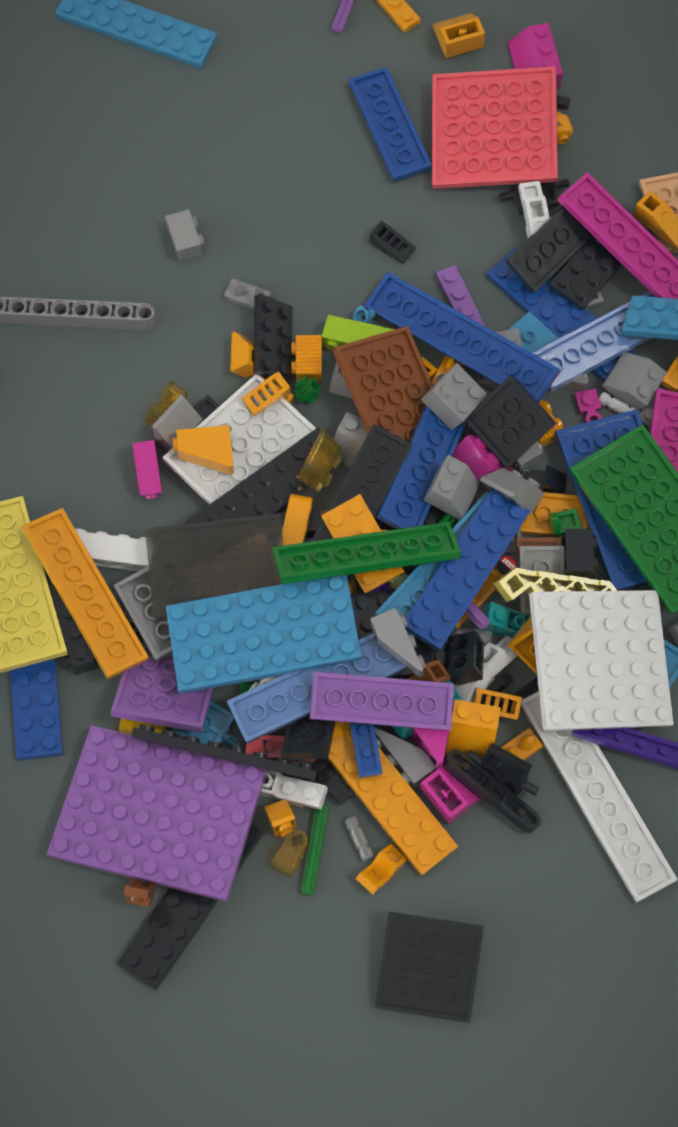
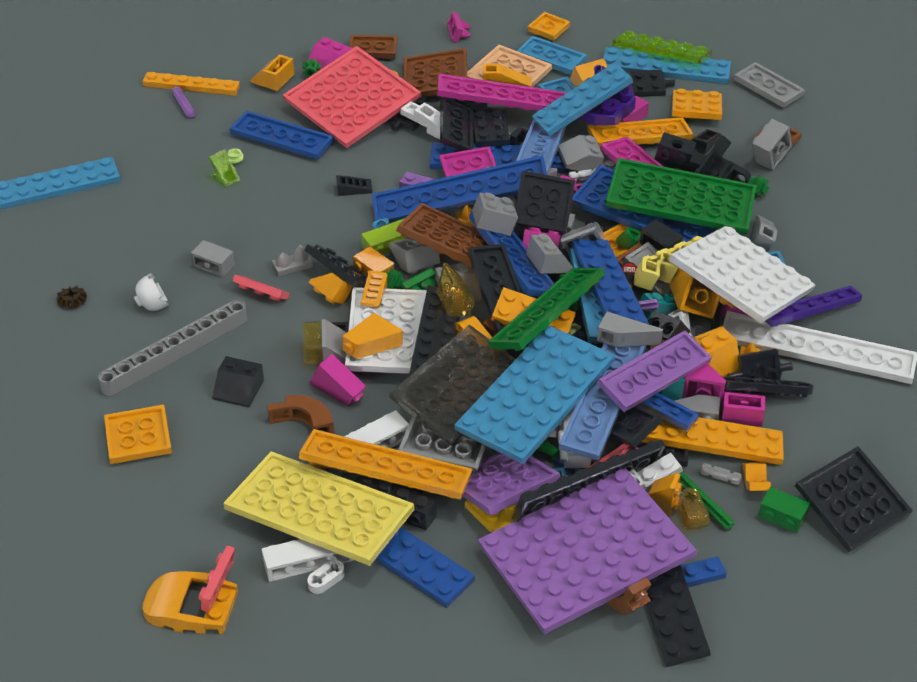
camera: 45 degrees left, 25 degrees down
(38, 190) = (64, 300): none -> dark brown gear
(73, 396) = (238, 381): none -> black slope
(94, 237) = (150, 294): none -> white cylinder
(99, 488) = (302, 409): none -> dark orange arch
(191, 303) = (260, 288): none -> coral plate
(238, 913) = (703, 571): none -> blue plate
(293, 130) = (224, 169): none -> clear neon green slope
(315, 413) = (422, 280): none -> green tile
(323, 118) = (235, 156): none -> yellowish green plate
(364, 921) = (783, 509): none -> green brick
(501, 54) = (310, 67): none -> green gear
(512, 306) = (466, 161): none -> dark pink plate
(594, 67) = (376, 45): none -> dark orange plate
(603, 306) = (518, 136): none -> black slope
(613, 154) = (423, 70): none -> dark orange plate

